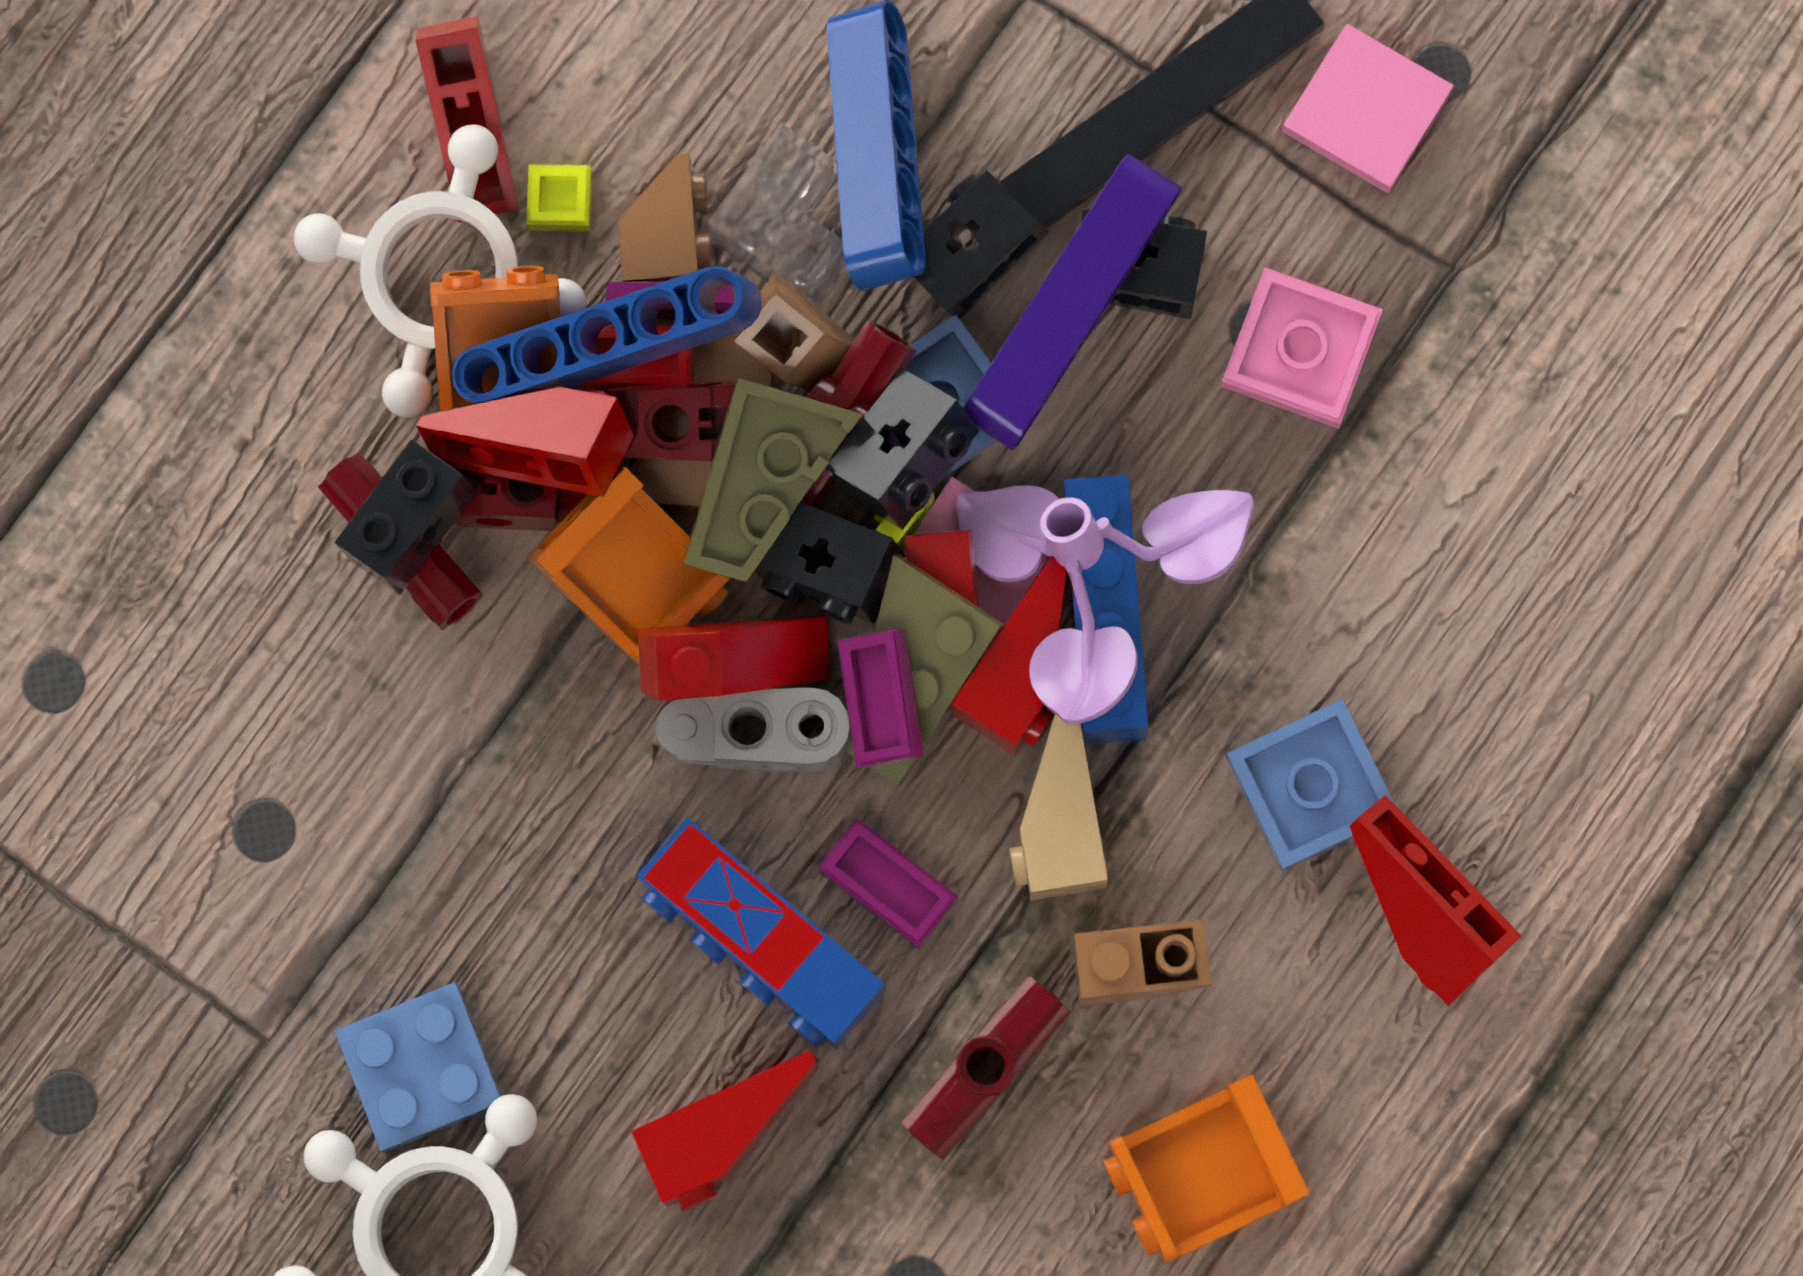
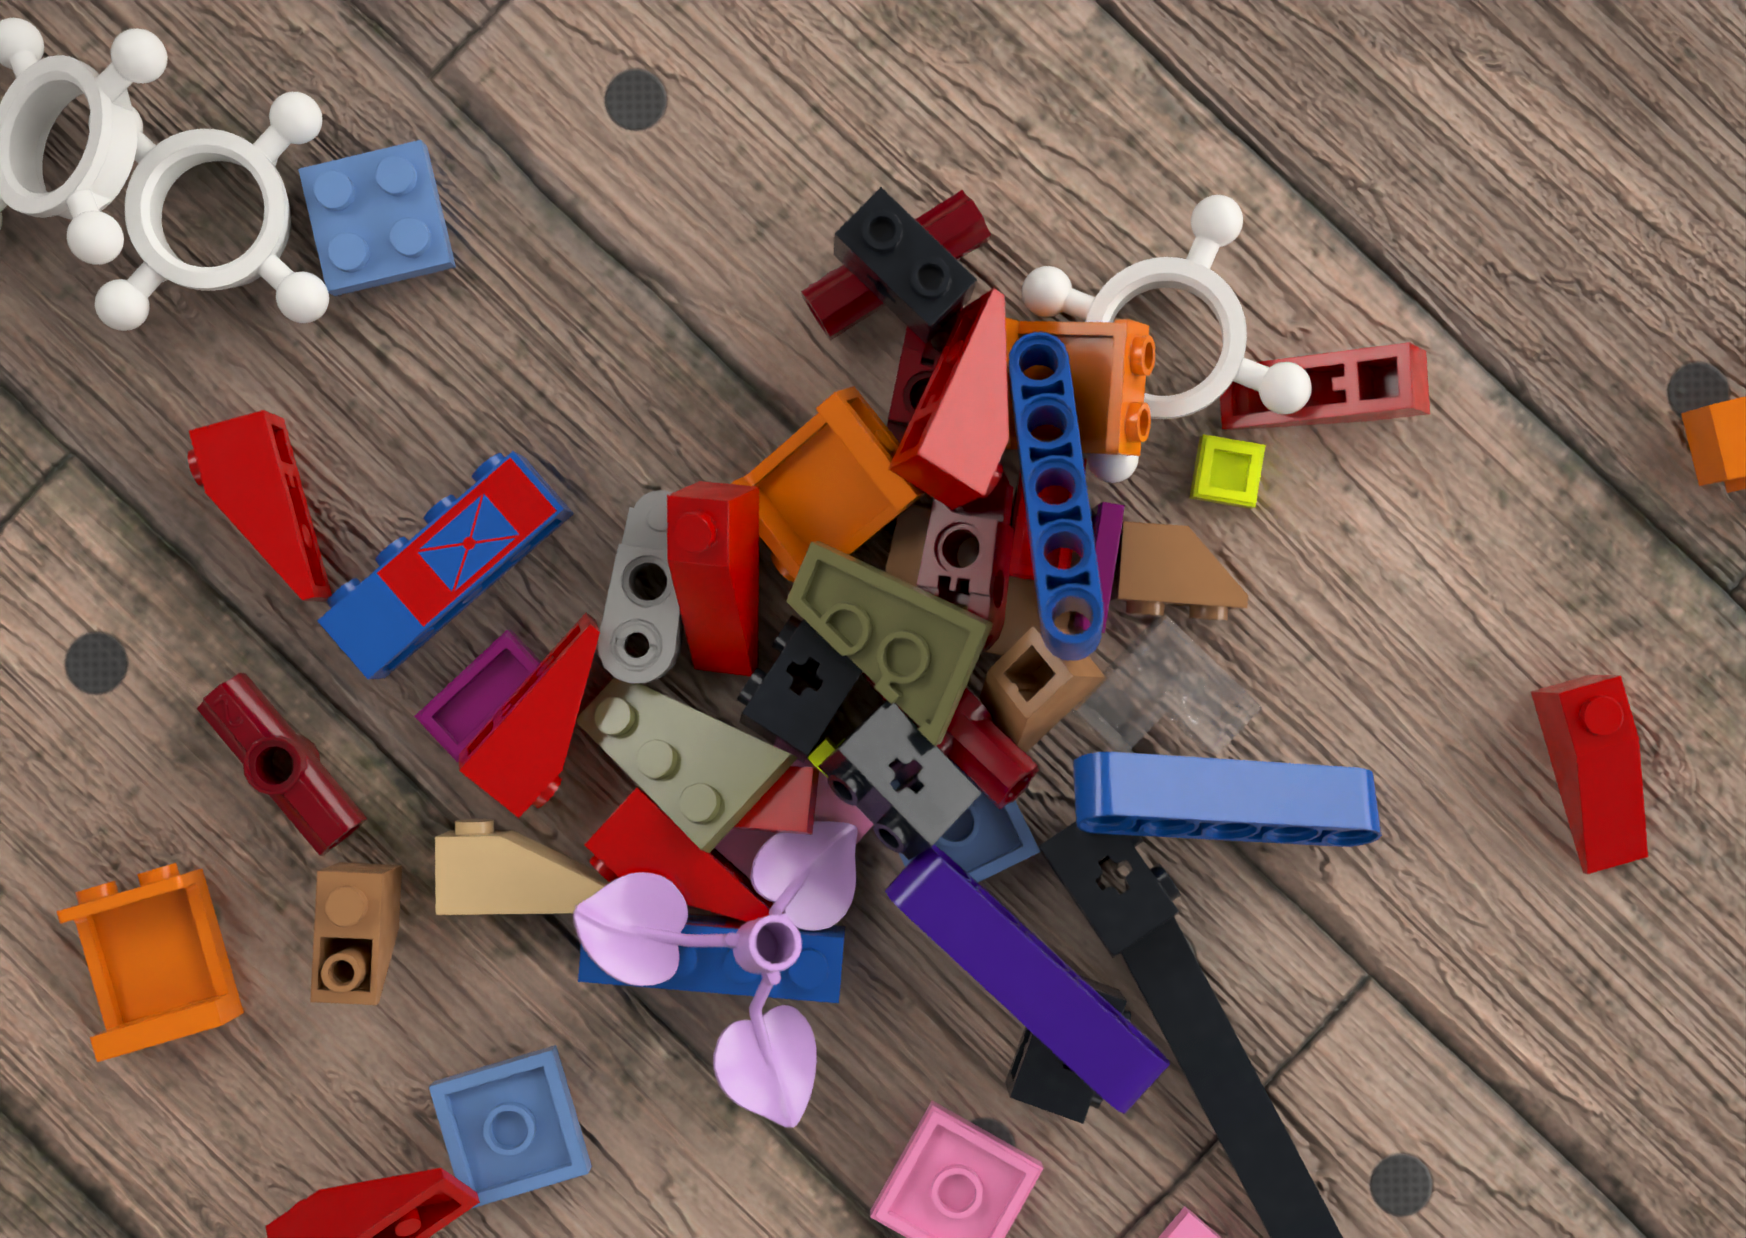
camera: 90 degrees right, 10 degrees up
(880, 698) = (651, 718): magenta tile -> none
(907, 816) = (529, 737): none -> red slope

